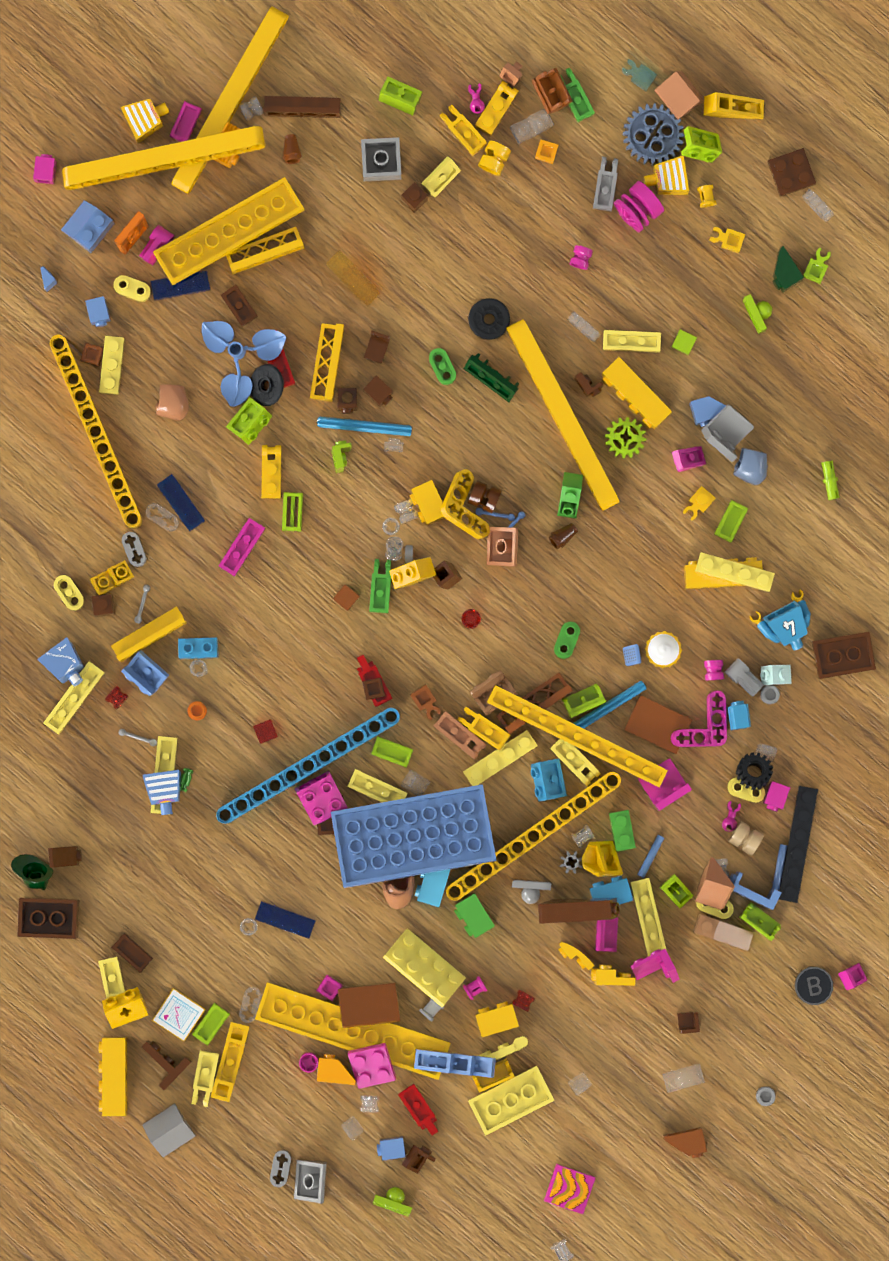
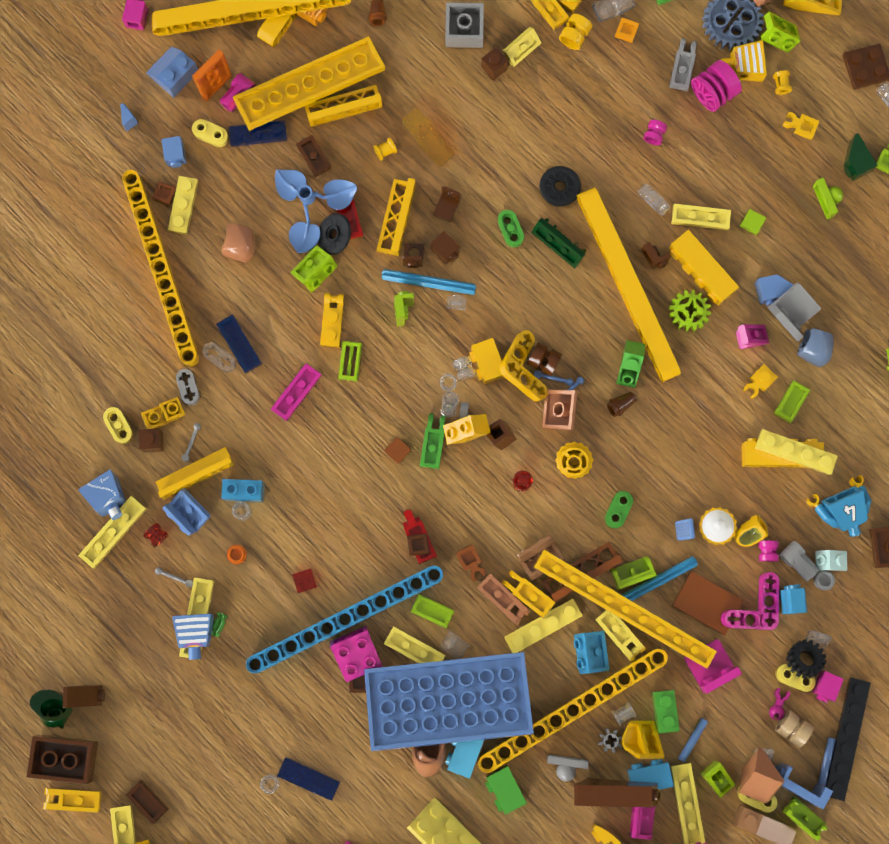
camera: 10 degrees right, 5 degrees down
(61, 956) = (73, 800): none -> yellow plate
(310, 293) = (385, 149): none -> yellow bush
(520, 594) = (578, 456): none -> yellow piece
(697, 652) = (751, 532): none -> yellow rock

